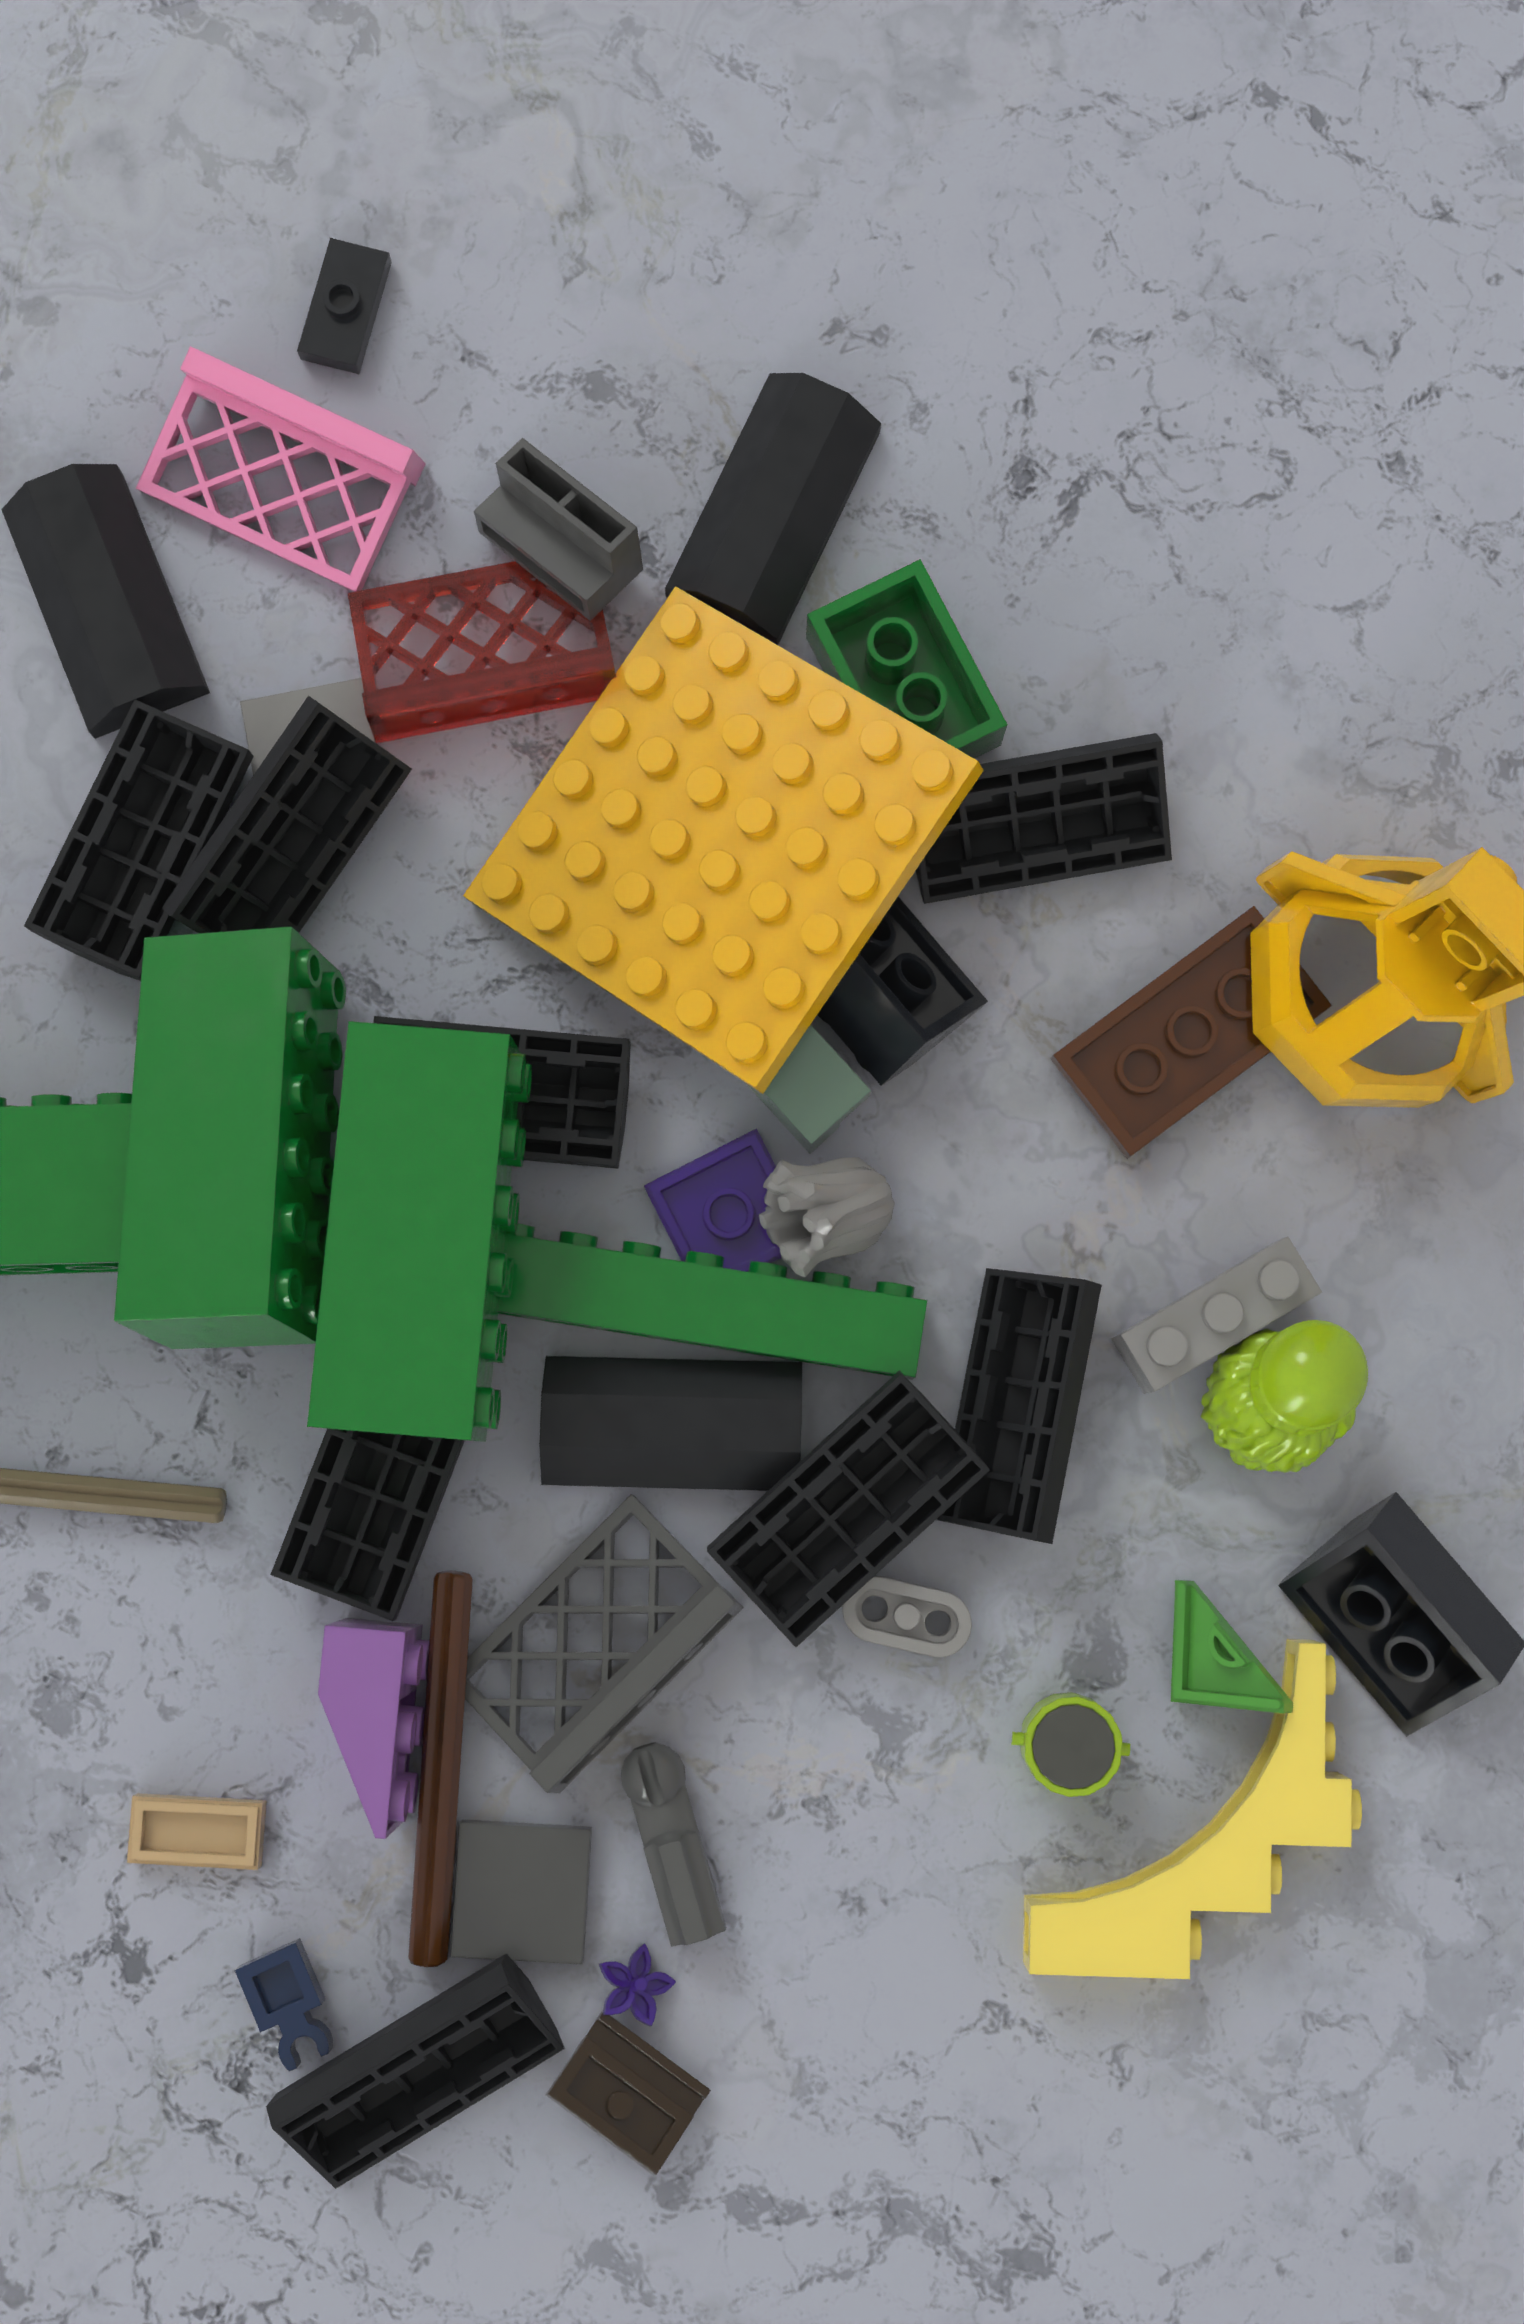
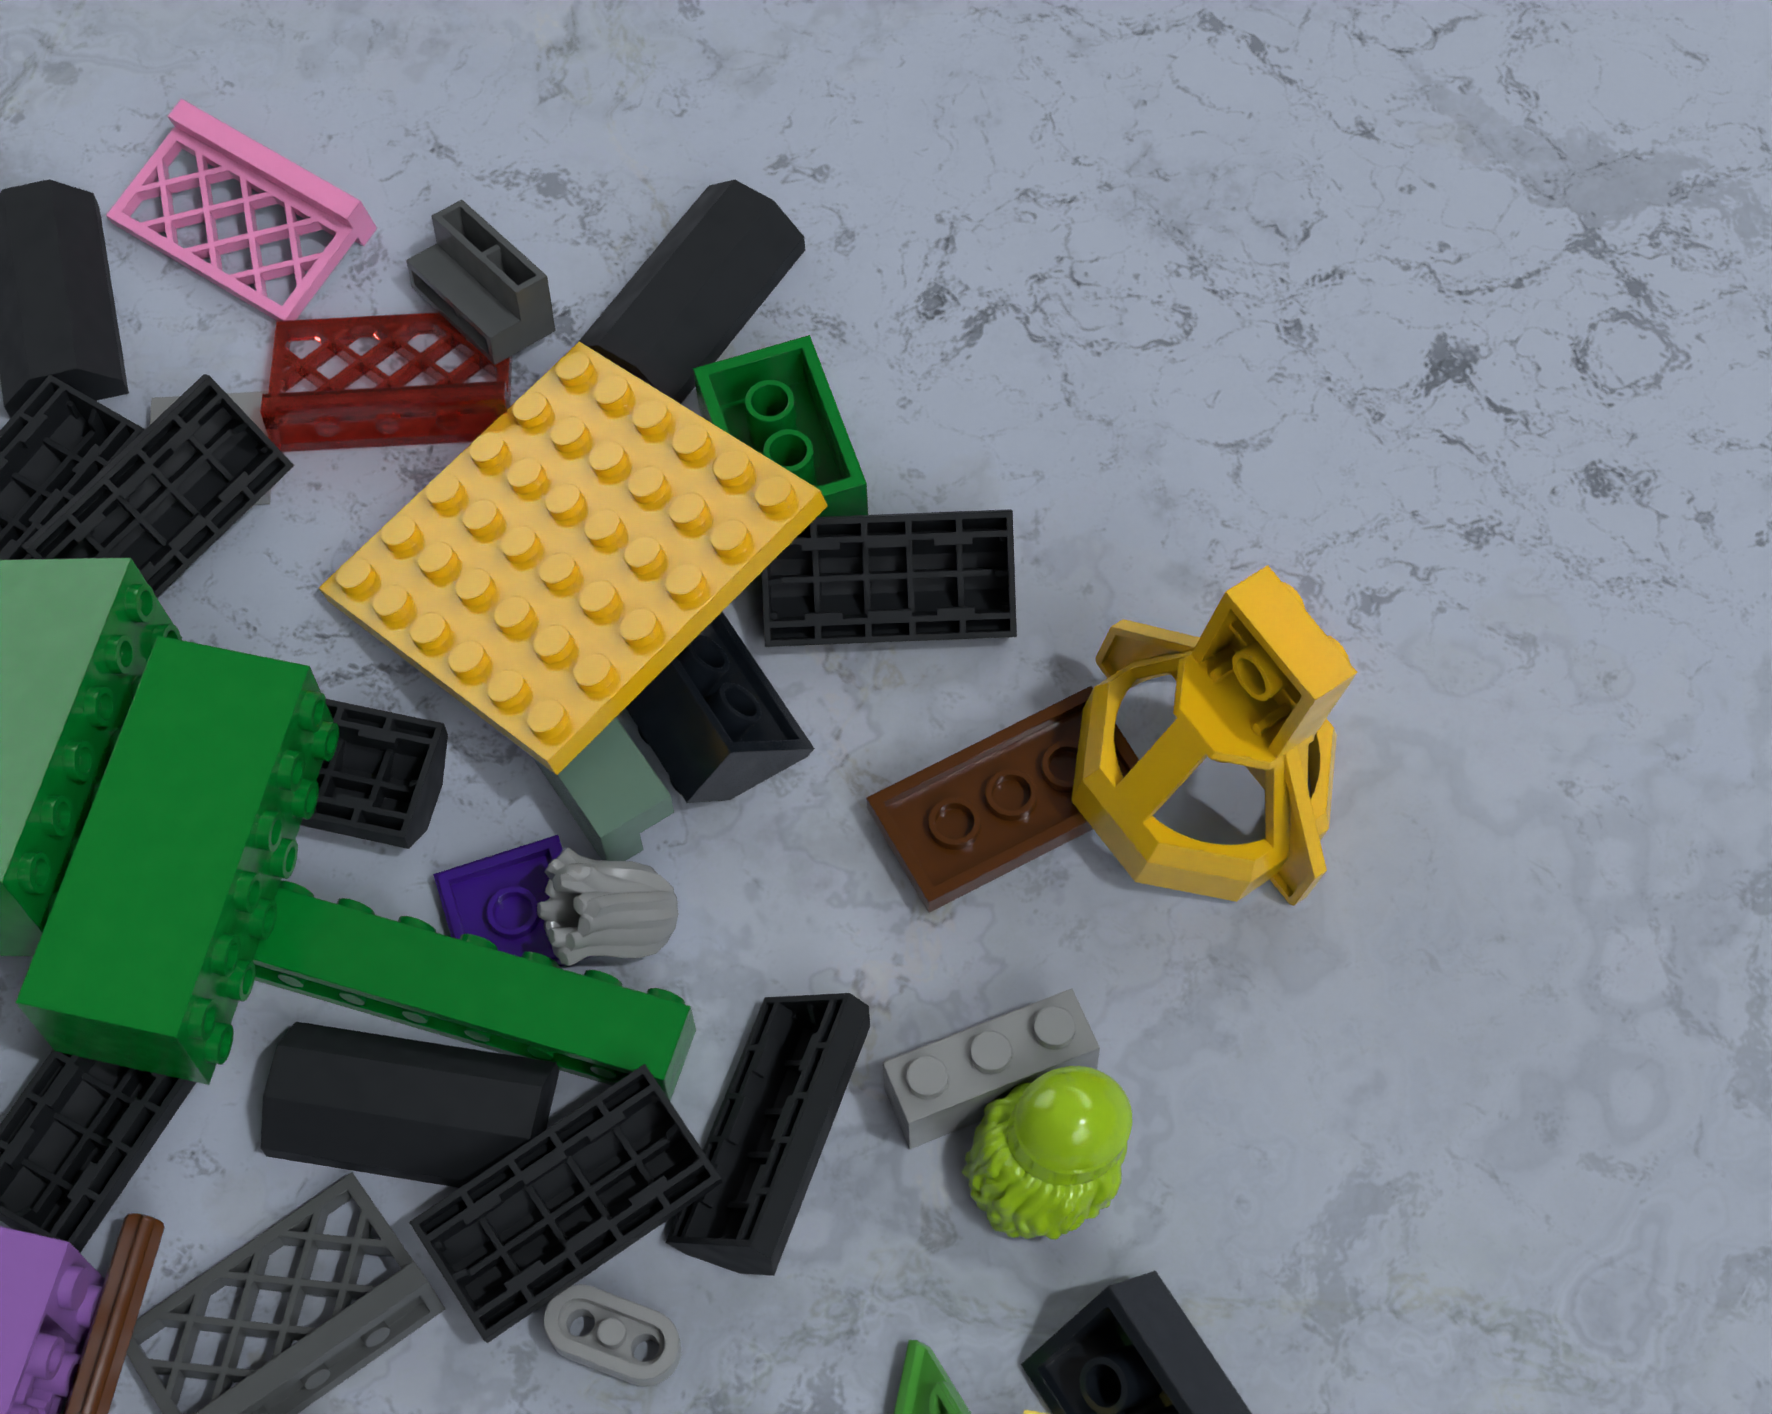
camera: 10 degrees right, 20 degrees down
(344, 306) = (334, 94): black plate -> none

